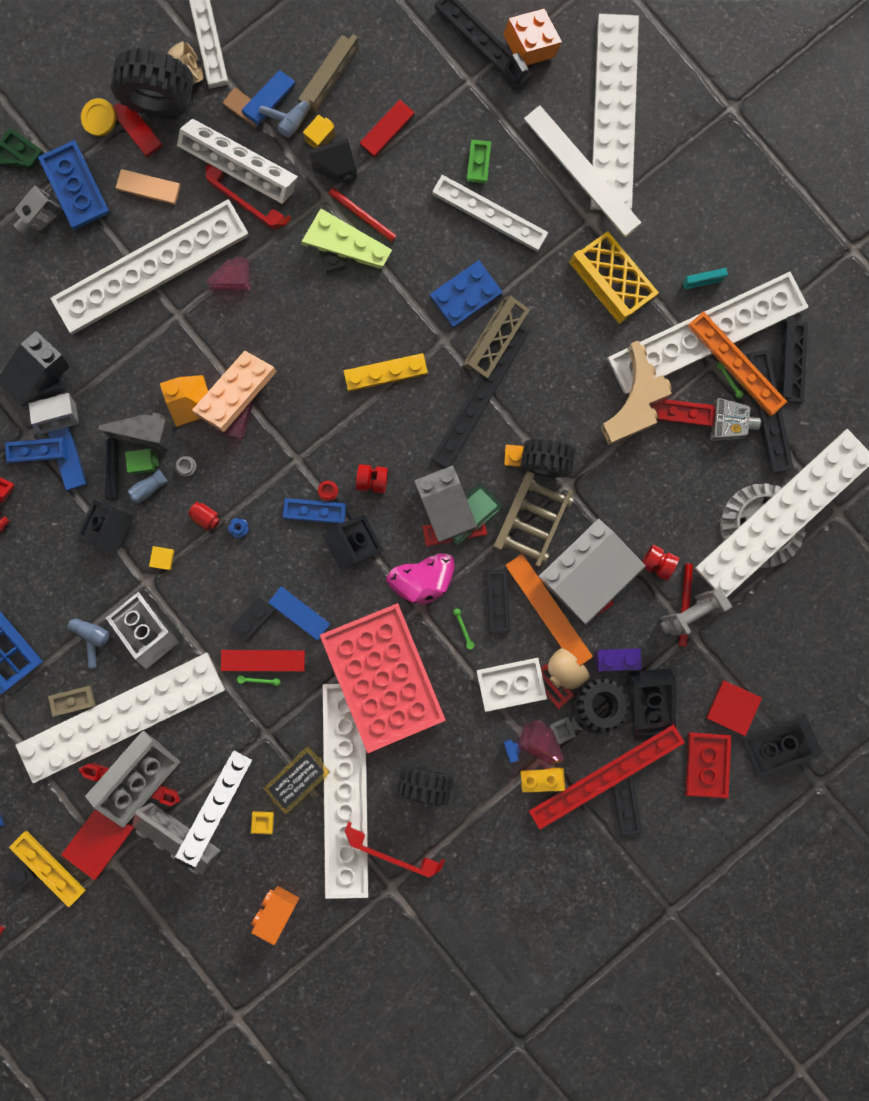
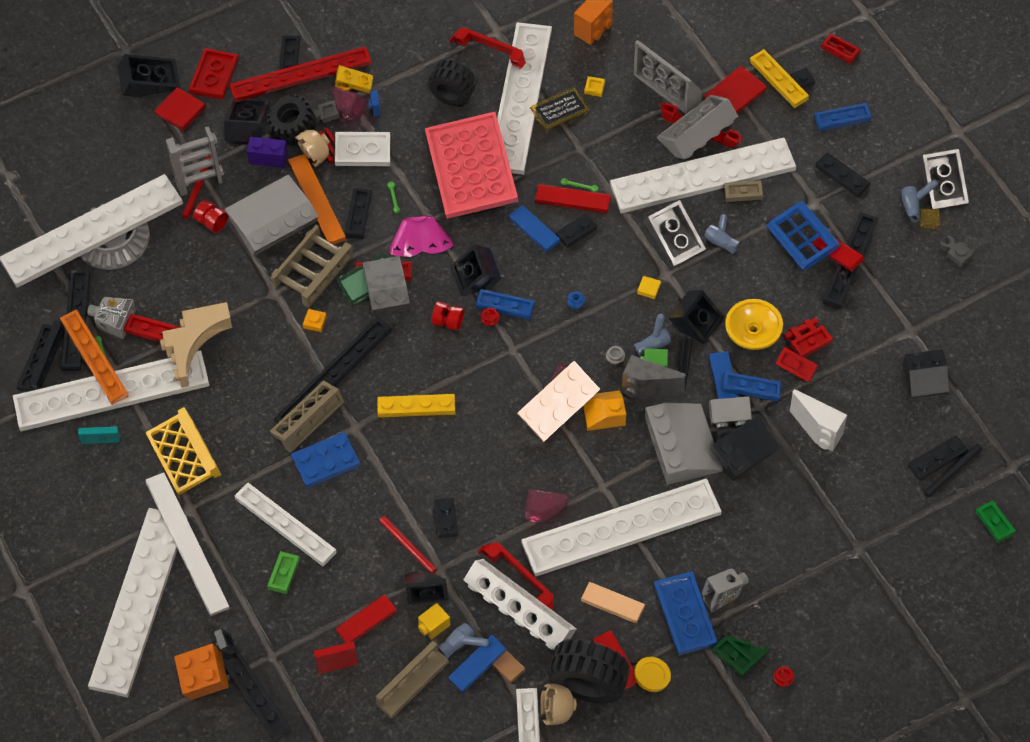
camera: 165 degrees left, 25 degrees down
(25, 518) = (757, 316): none -> yellow dish
(100, 374) = (682, 441): none -> light grey slope
(204, 516) = (605, 311): red brick -> none
(212, 810) = (628, 84): plate -> none
(338, 237) = (431, 517): yellowish green wing -> none
(405, 71) = (336, 657): none -> red tile
(548, 458) = (286, 301): black tyre -> none

